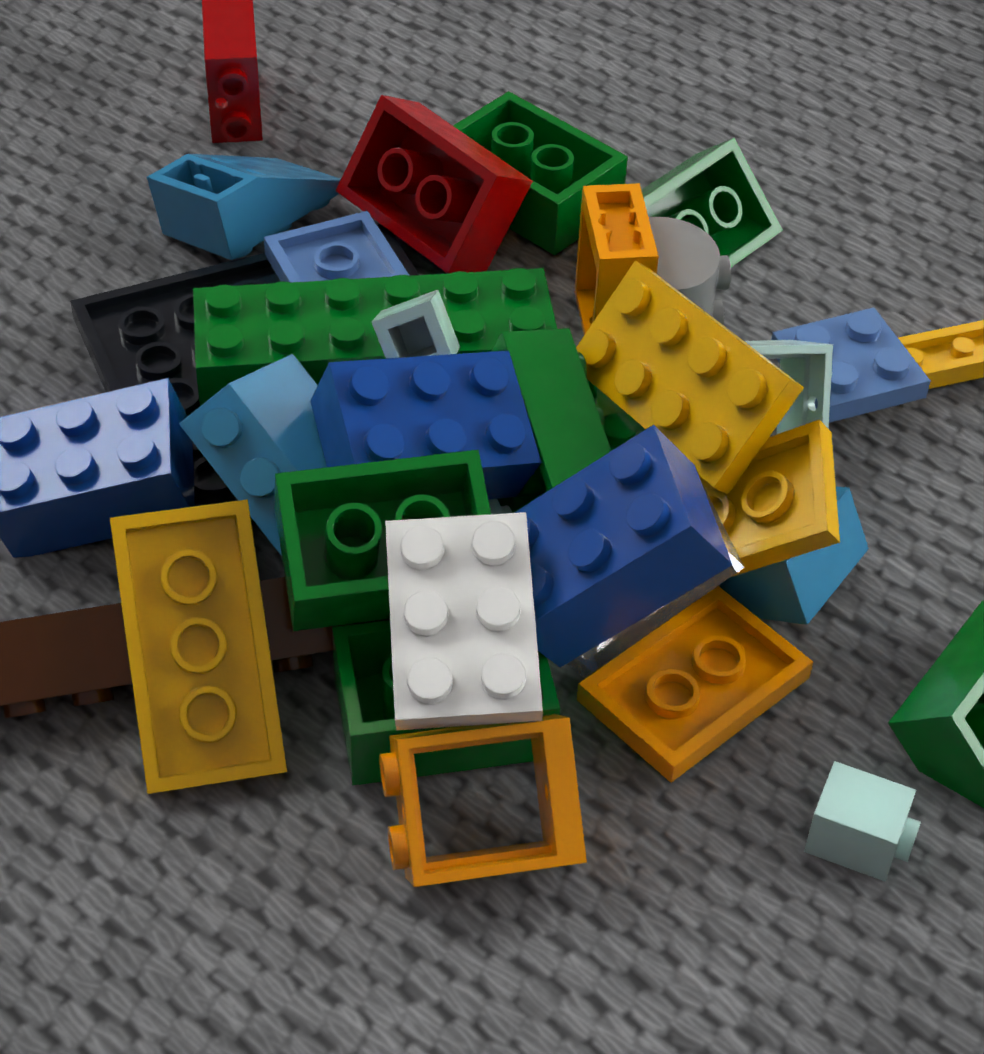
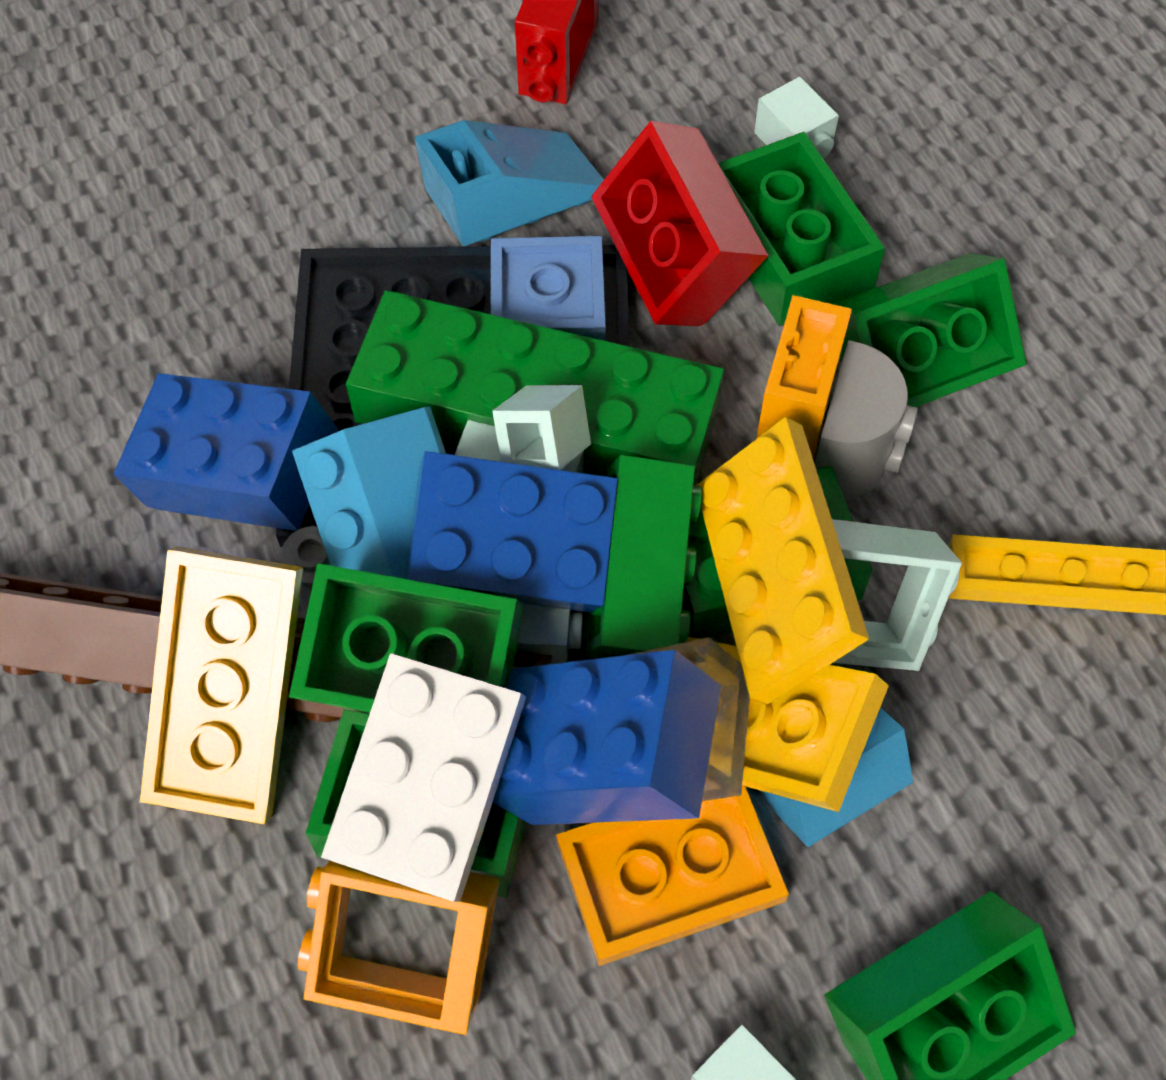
camera: 25 degrees right, 15 degrees up
(480, 86) = (796, 110): none -> light aqua brick
(867, 363) = (1008, 564): medium blue plate -> none

